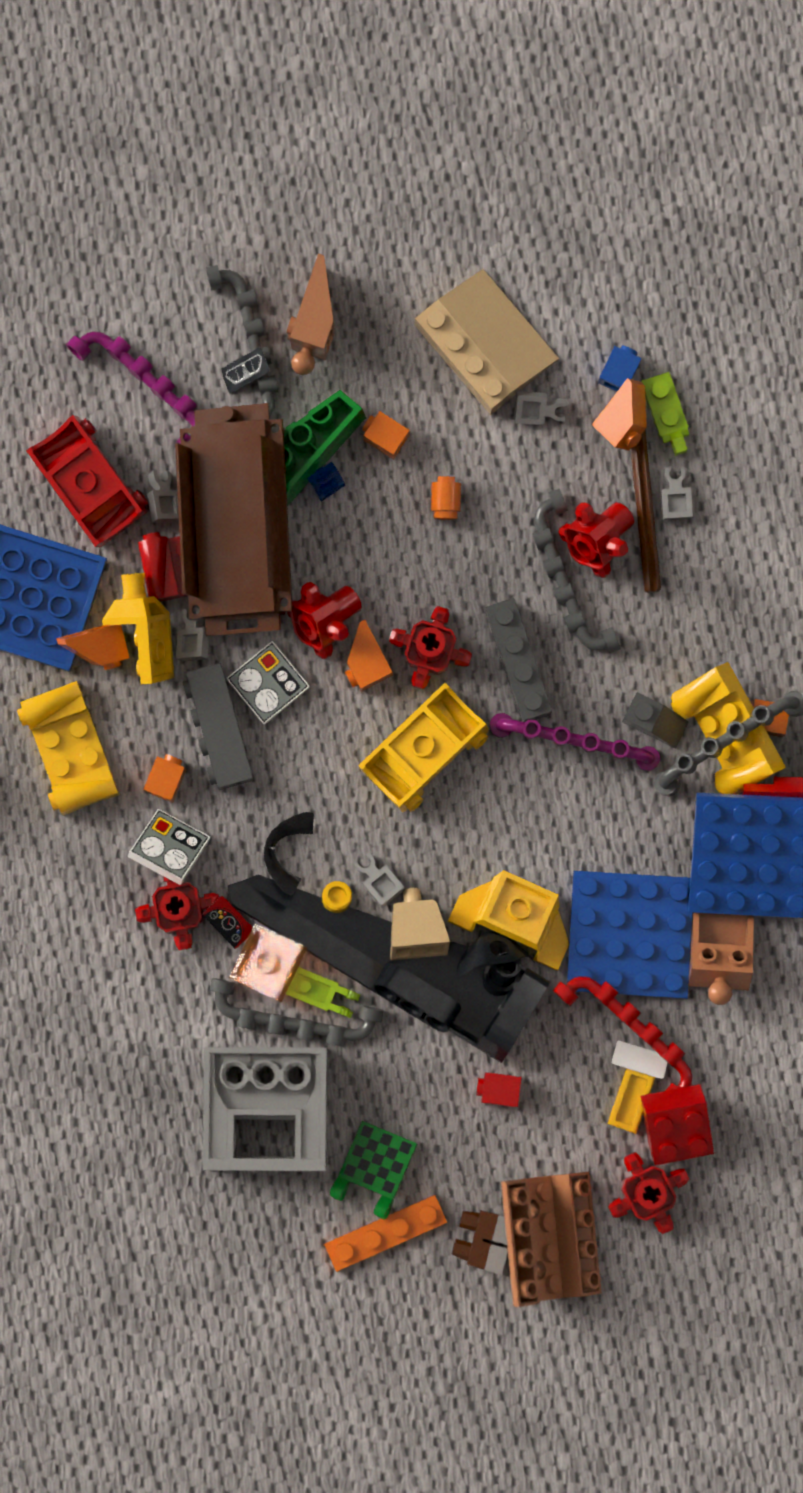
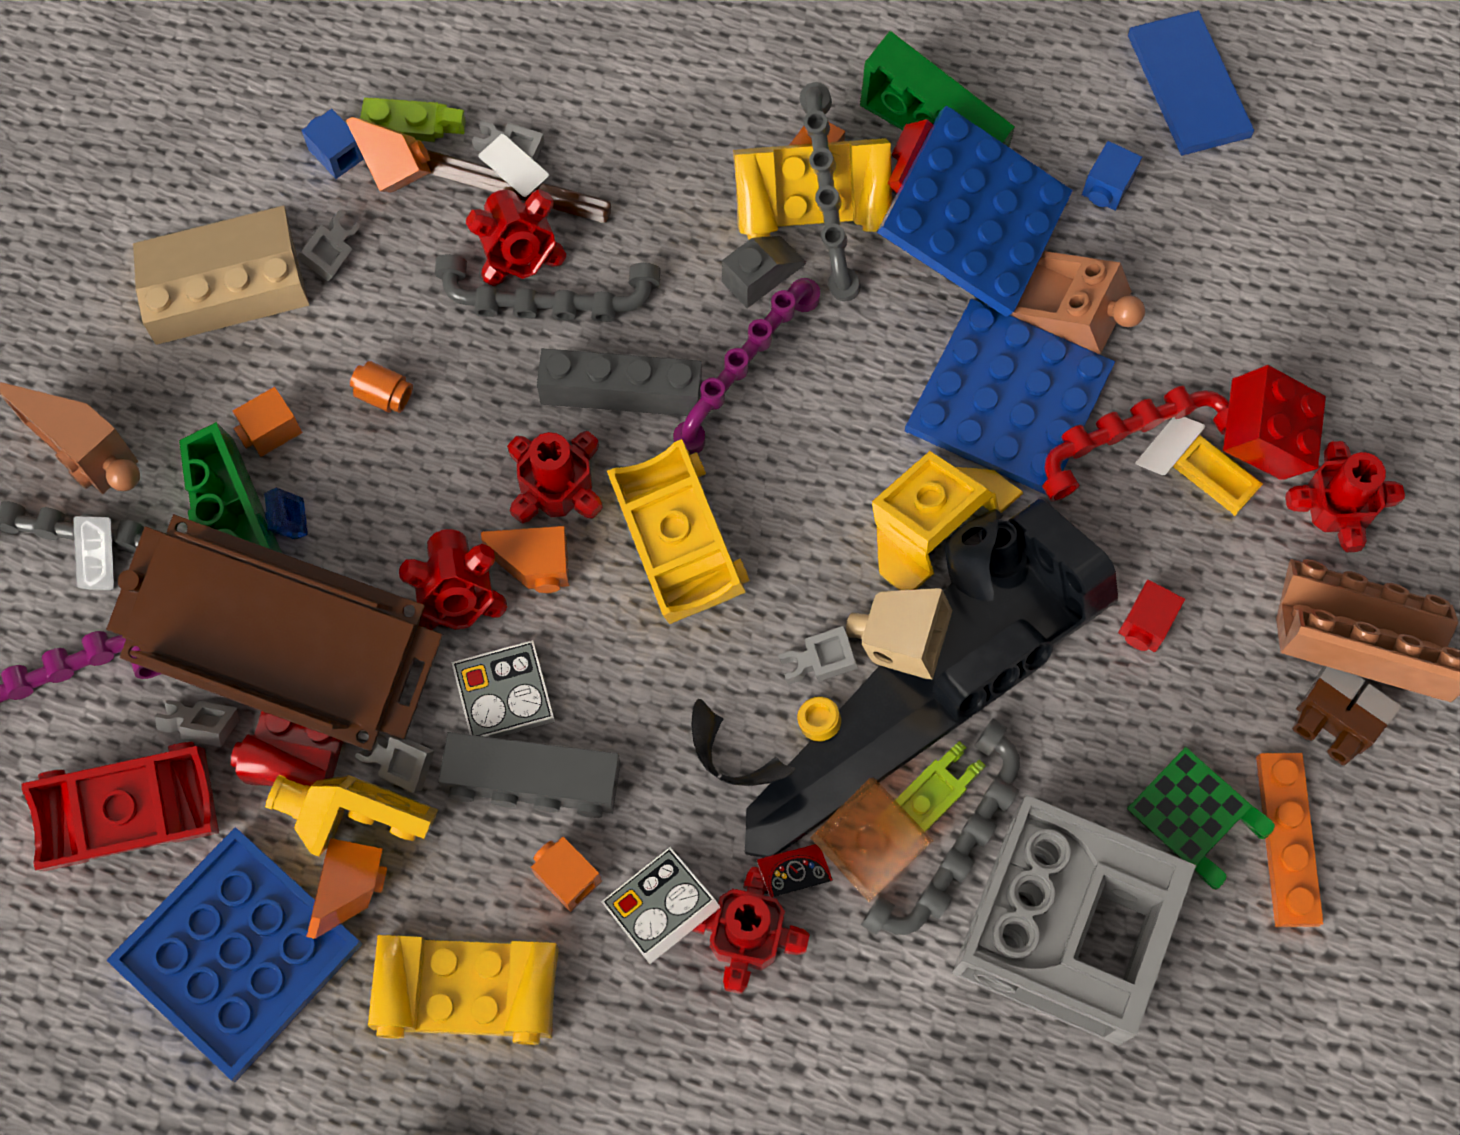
camera: 70 degrees left, 15 degrees down
(657, 507) = (513, 165): none -> white sticker

